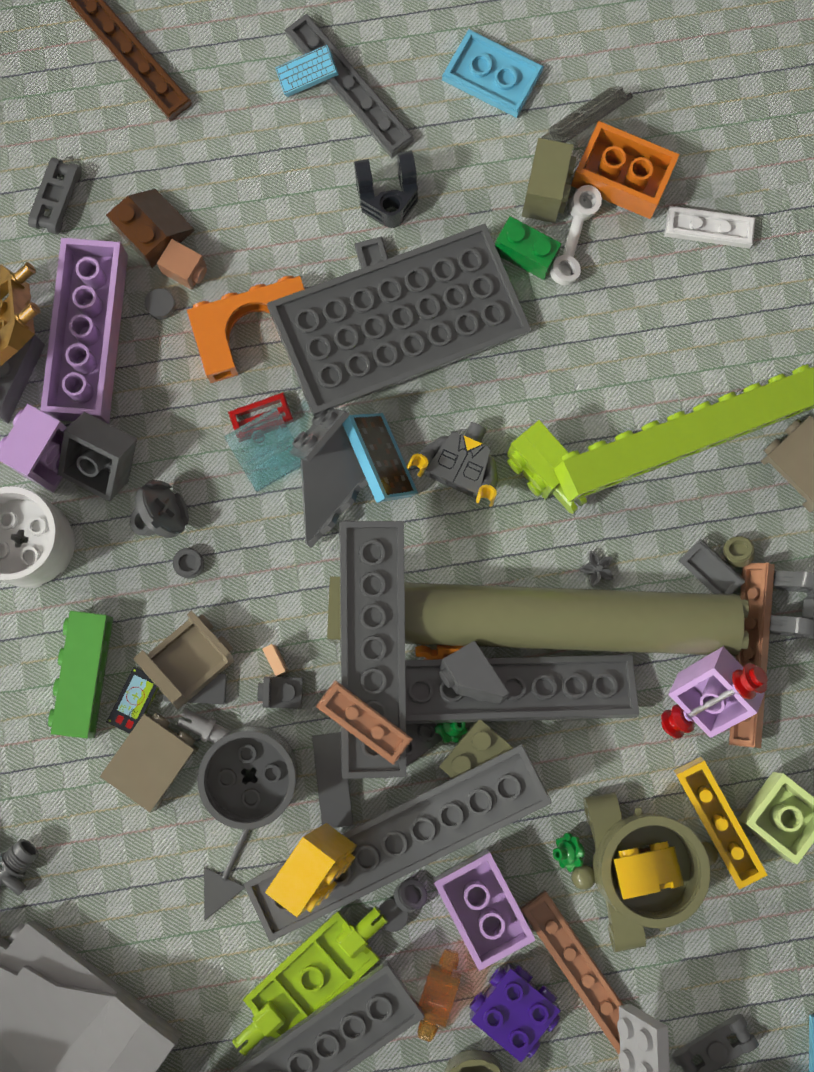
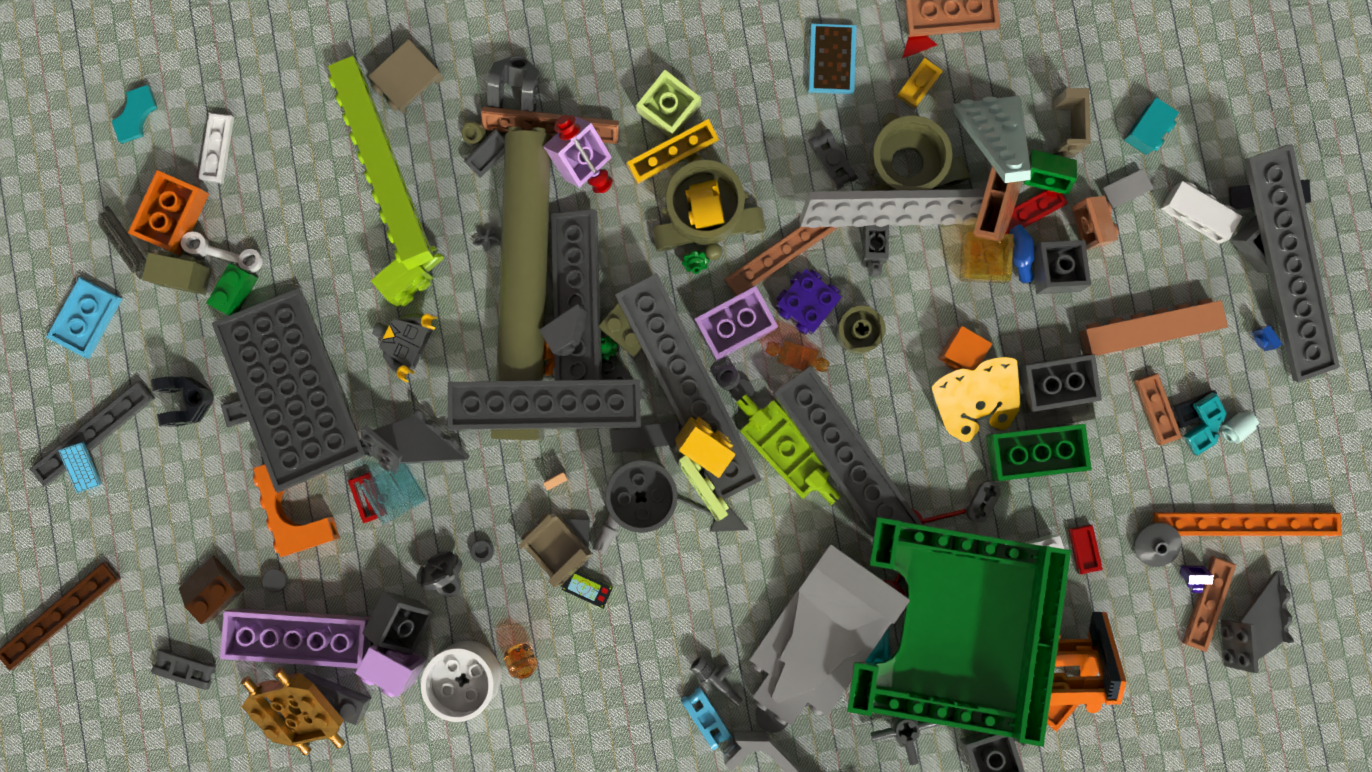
camera: 90 degrees left, 5 degrees up
(41, 613) = (520, 661): none -> clear orange head
(81, 675) = (567, 628): bright green brick -> none
(149, 761) = (631, 573): dark tan panel -> none
(182, 264) = (242, 562): nougat brick -> none
(255, 865) = (704, 488): none -> yellowish green plate
(281, 692) = (580, 476): dark grey bracket -> none
(364, 722) = (598, 410): nougat tile -> none
(379, 457) = (399, 403): tile -> none
(738, 123) = (139, 105): none -> teal tile

